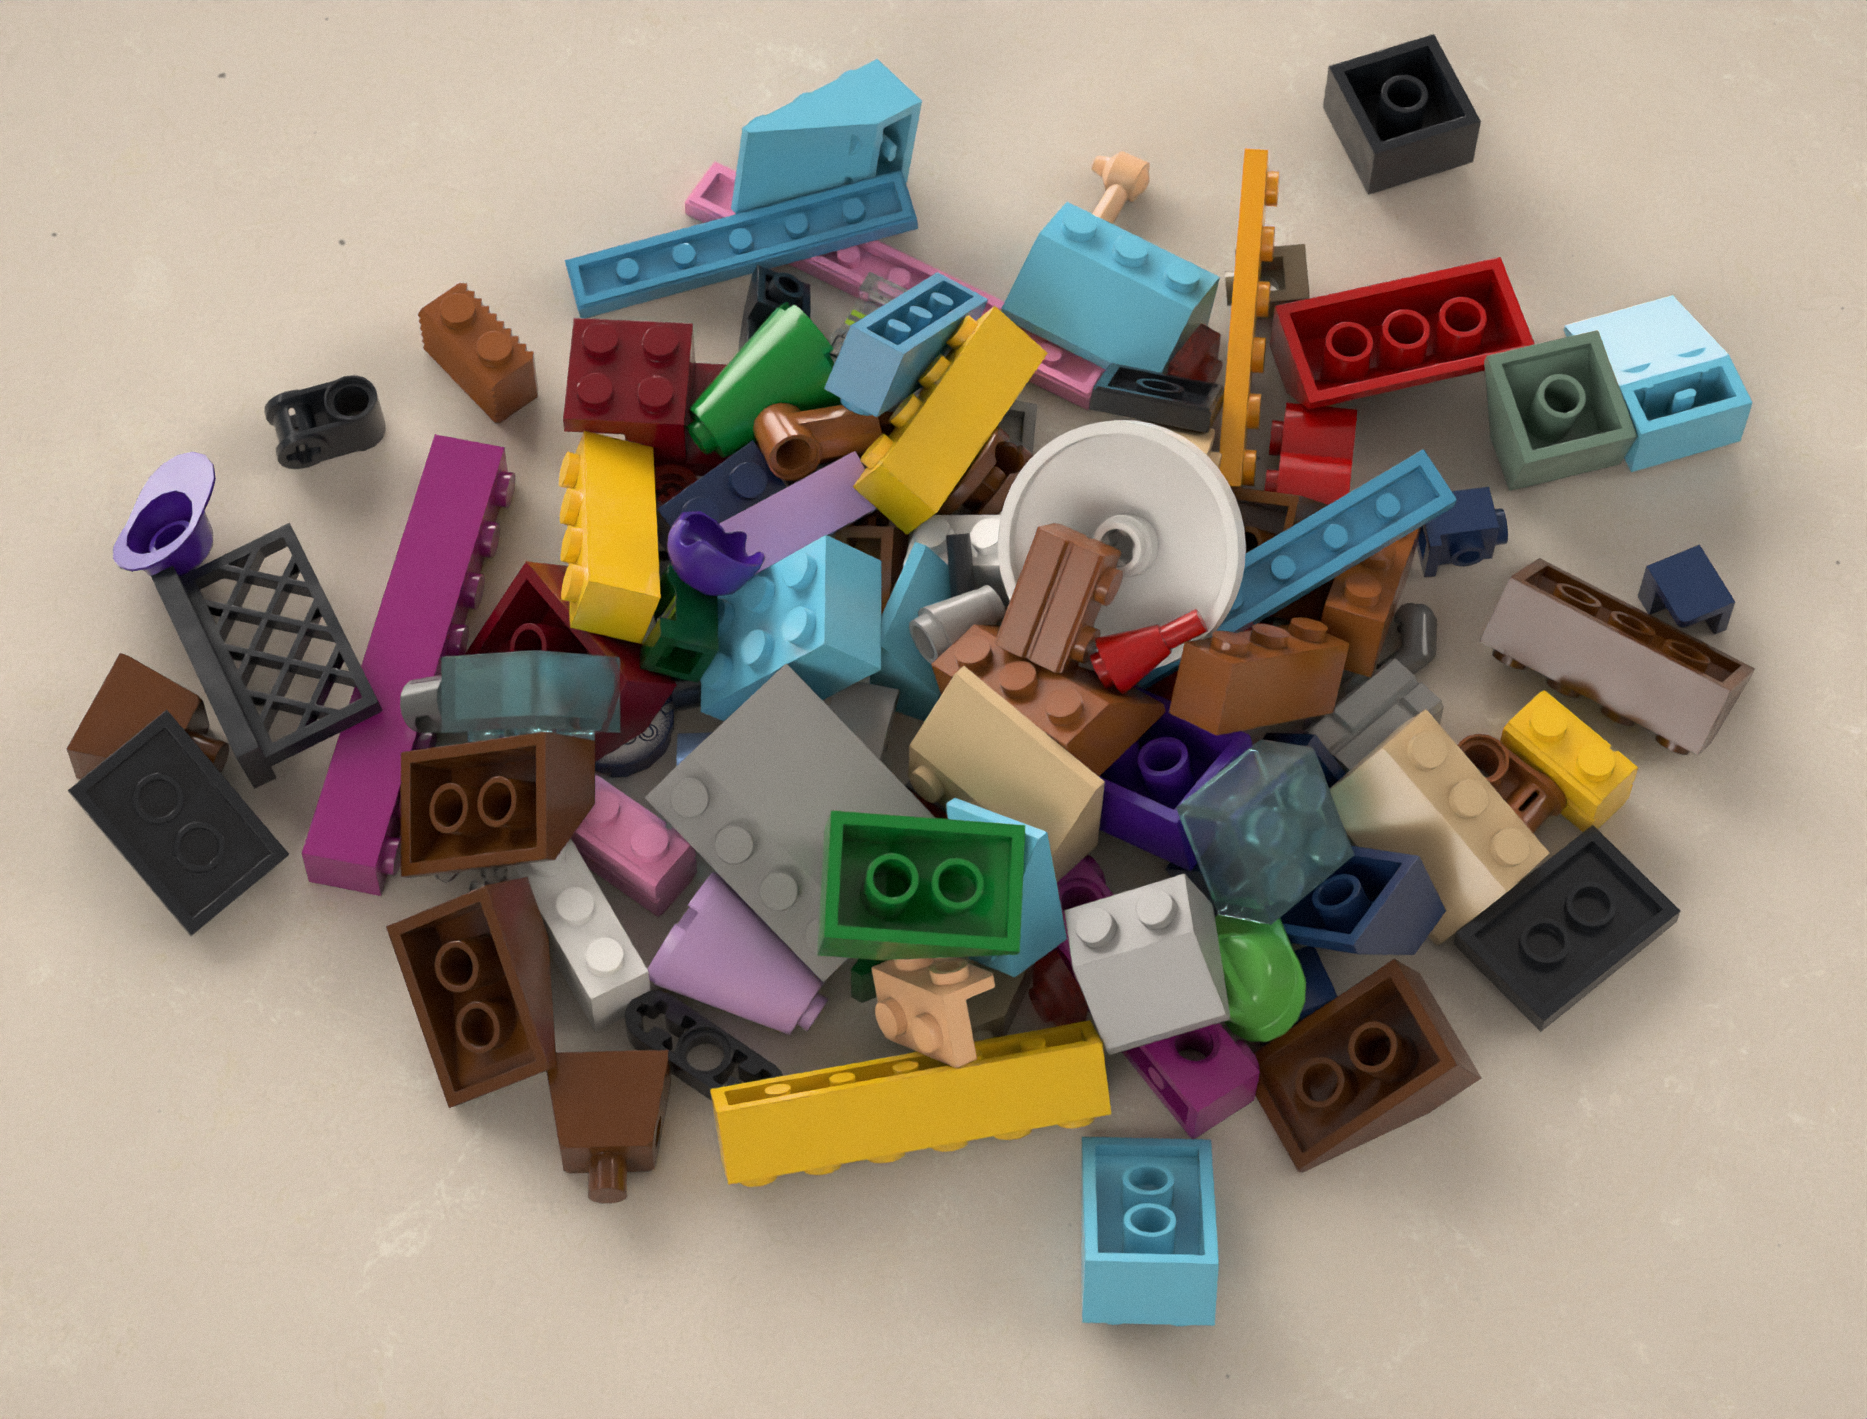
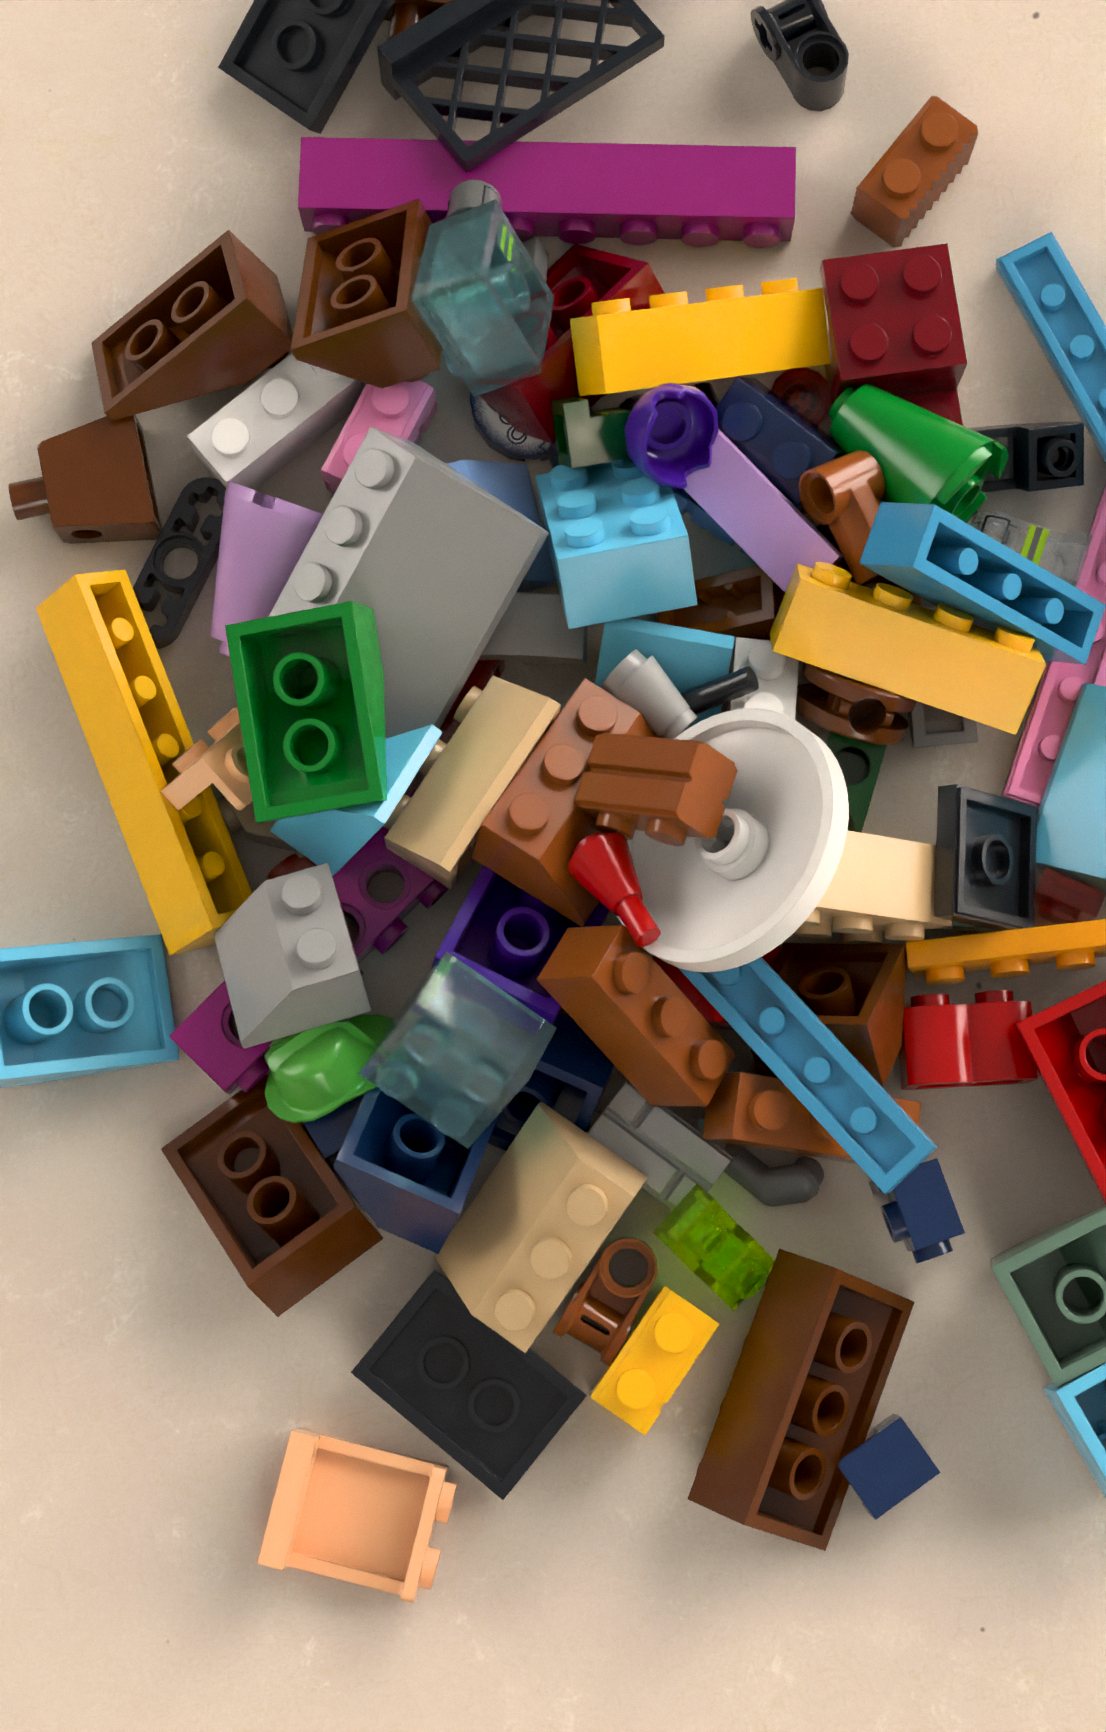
camera: 85 degrees right, 20 degrees up
(1474, 690) = (715, 1247): none -> clear neon green slope
(1678, 1042) = (357, 1514): none -> light nougat panel

